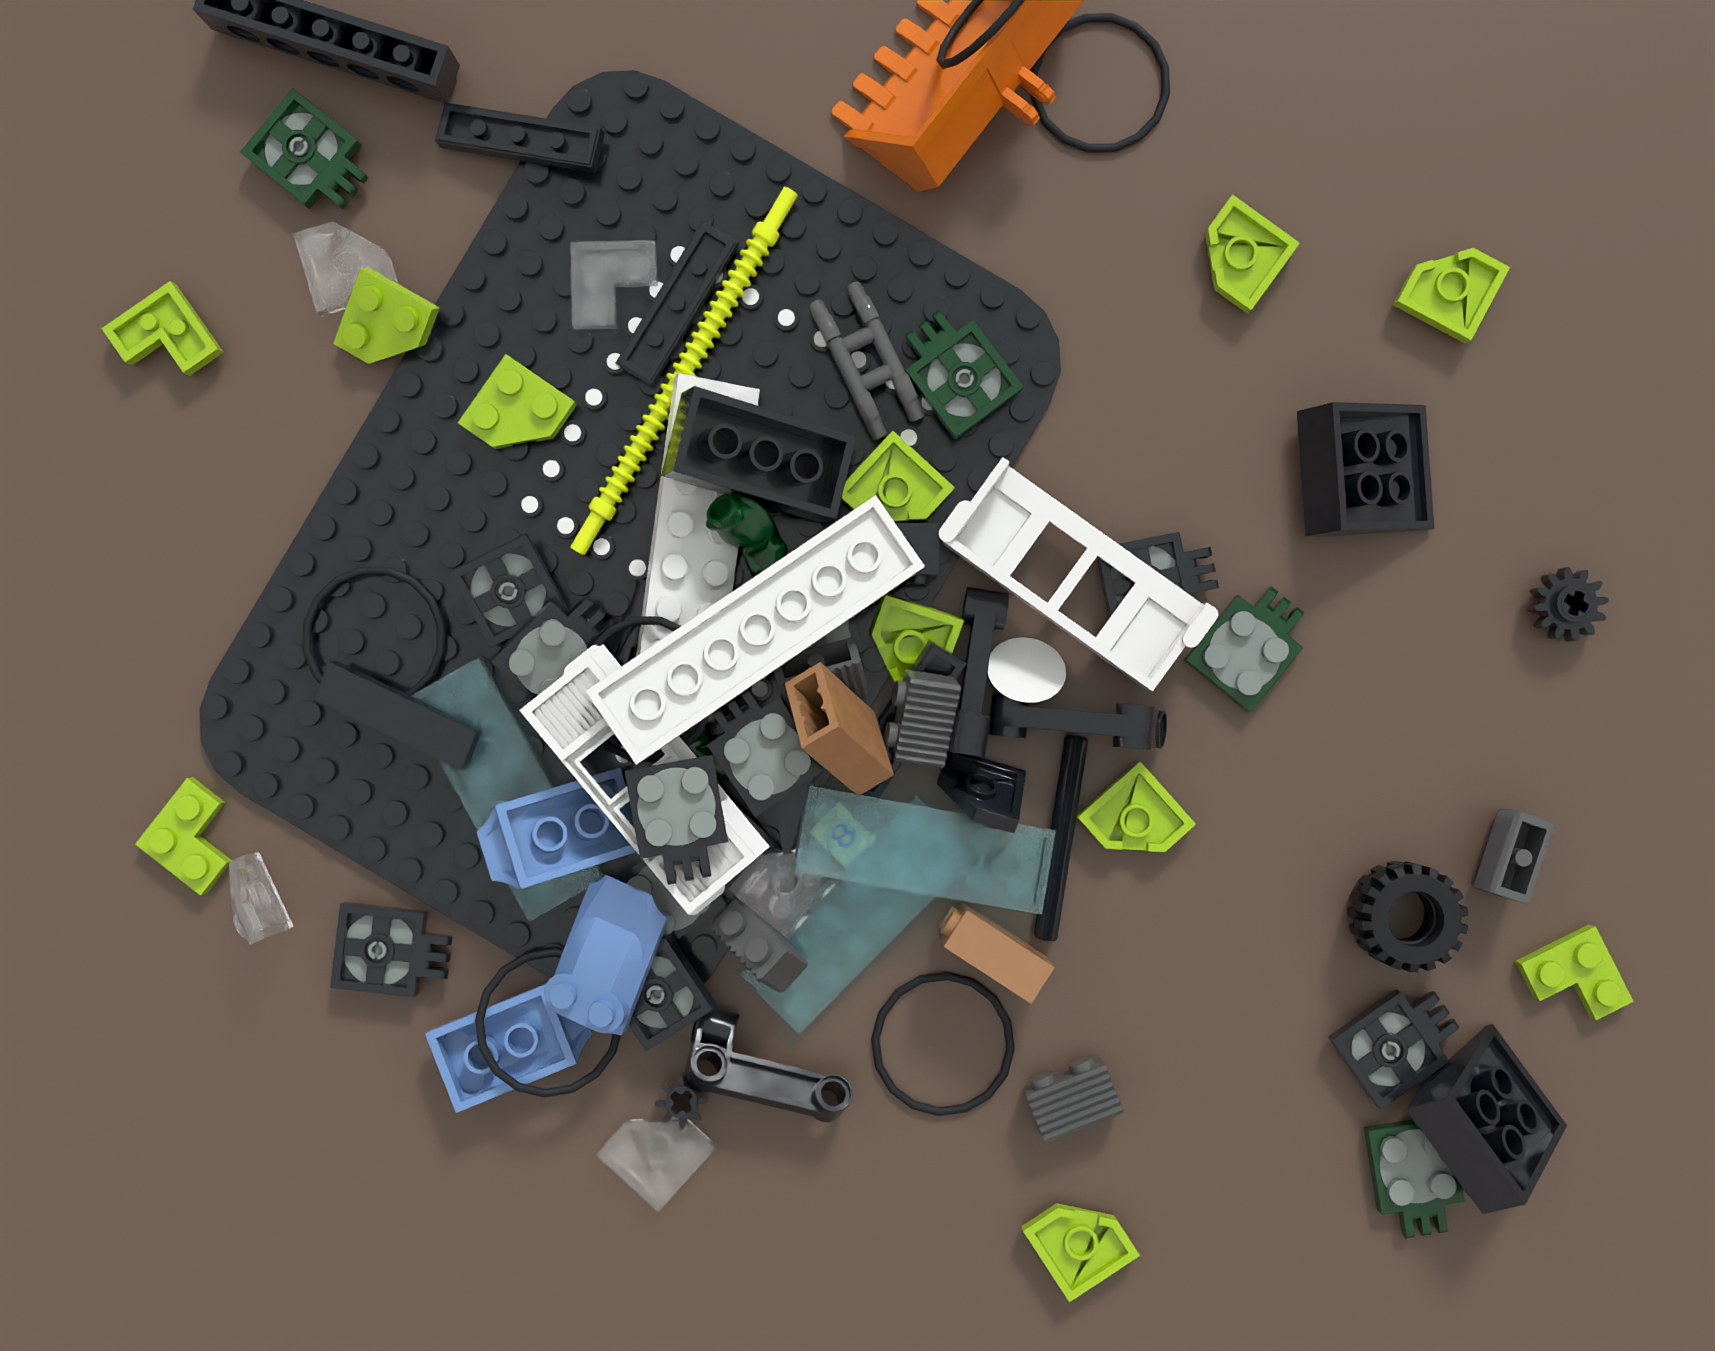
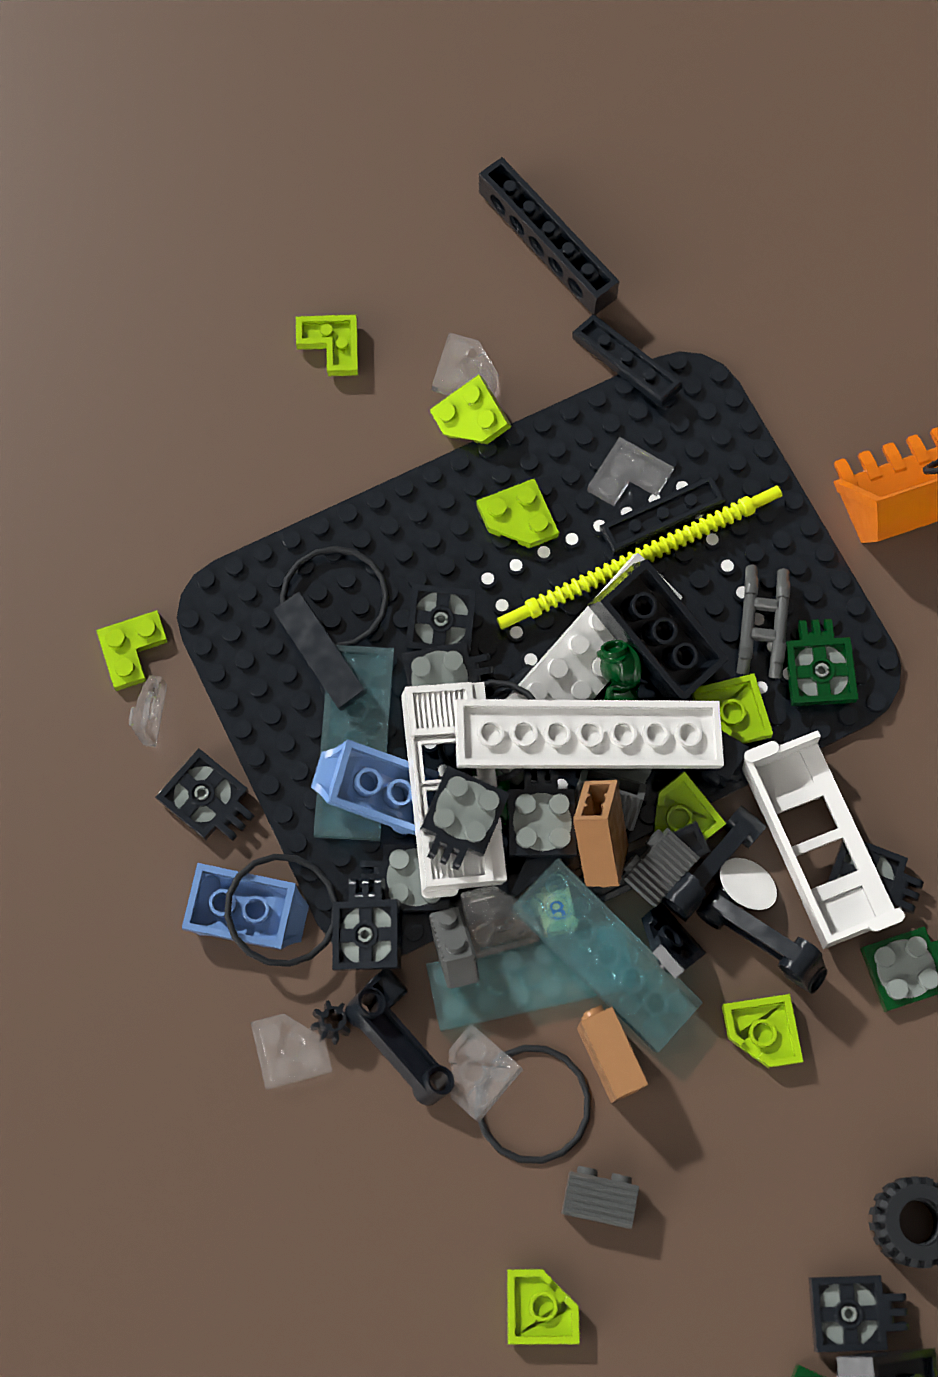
camera: 35 degrees right, 15 degrees down
(305, 152) = (488, 292): dark green piece -> none
(607, 957) = (353, 885): medium blue slope -> none
(868, 1052) = (479, 1072): none -> clear plate
(1064, 824) = (711, 1003): black axle -> none

